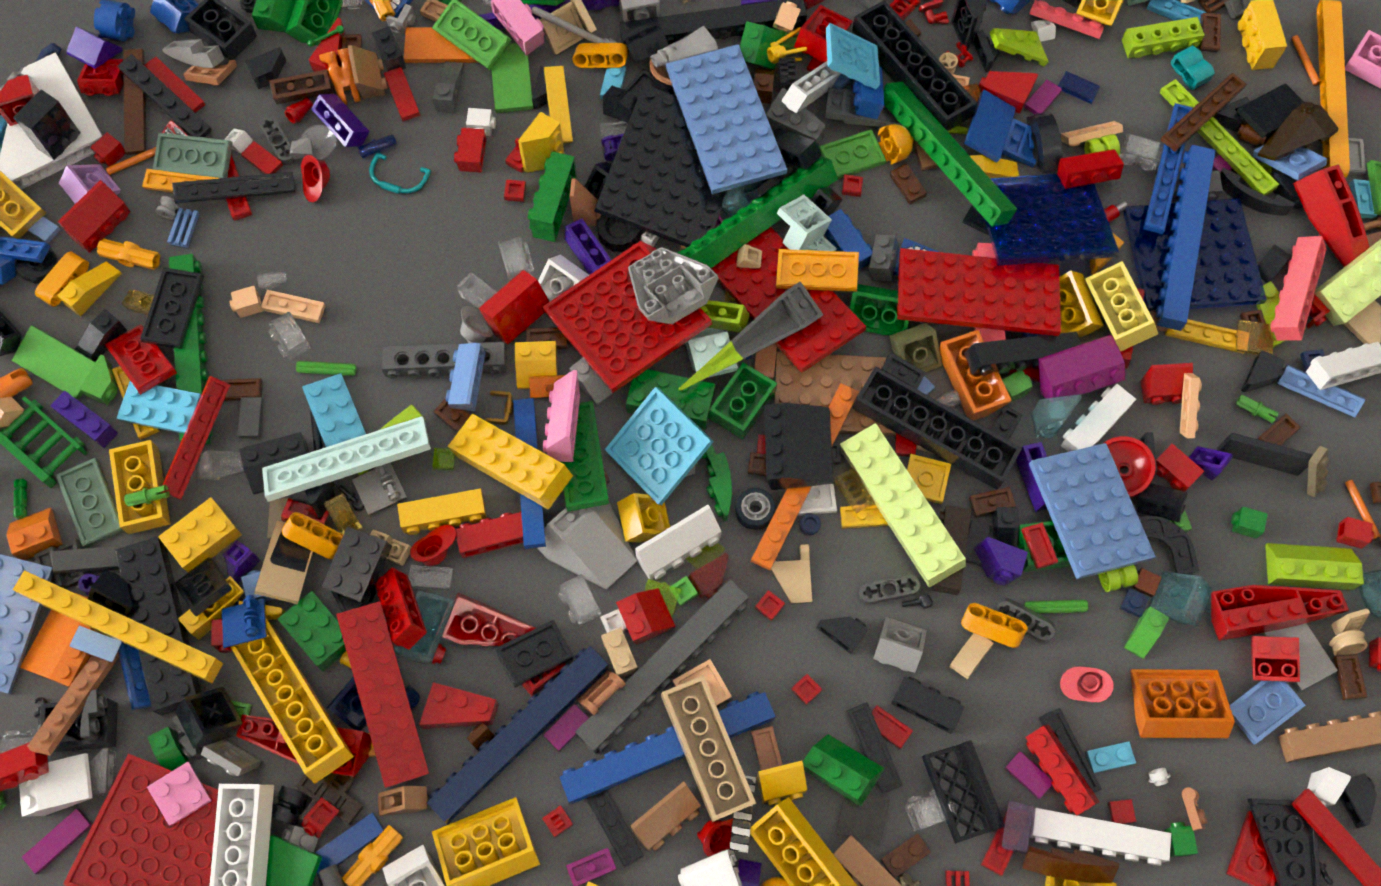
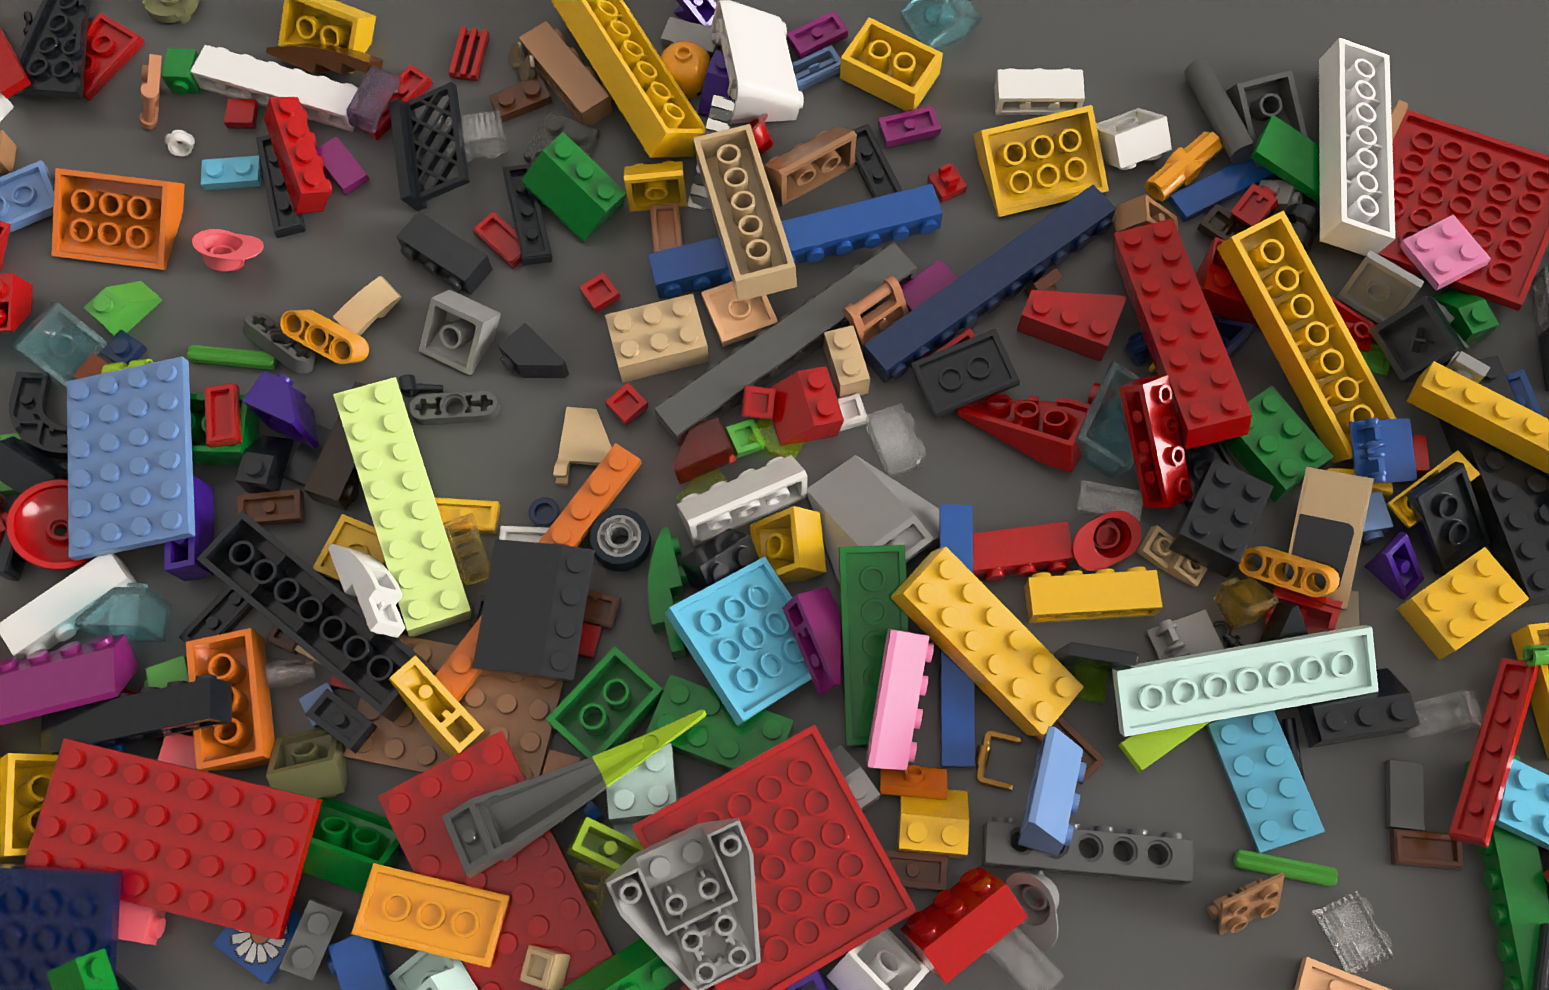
camera: 170 degrees left, 0 degrees up
(181, 683) = (1468, 366): none -> light grey bracket
(357, 334) = (1254, 900): none -> medium nougat hinge
(441, 459) = (1095, 657): none -> black tile
(617, 459) = (817, 631): none -> magenta slope
(677, 611) = (758, 402): none -> red tile
(686, 497) = (719, 558): none -> black brick
(757, 655) = (657, 338): none -> tan brick
(842, 375) = (435, 707): none -> yellow slope
(904, 444) = (374, 587): none -> white slope

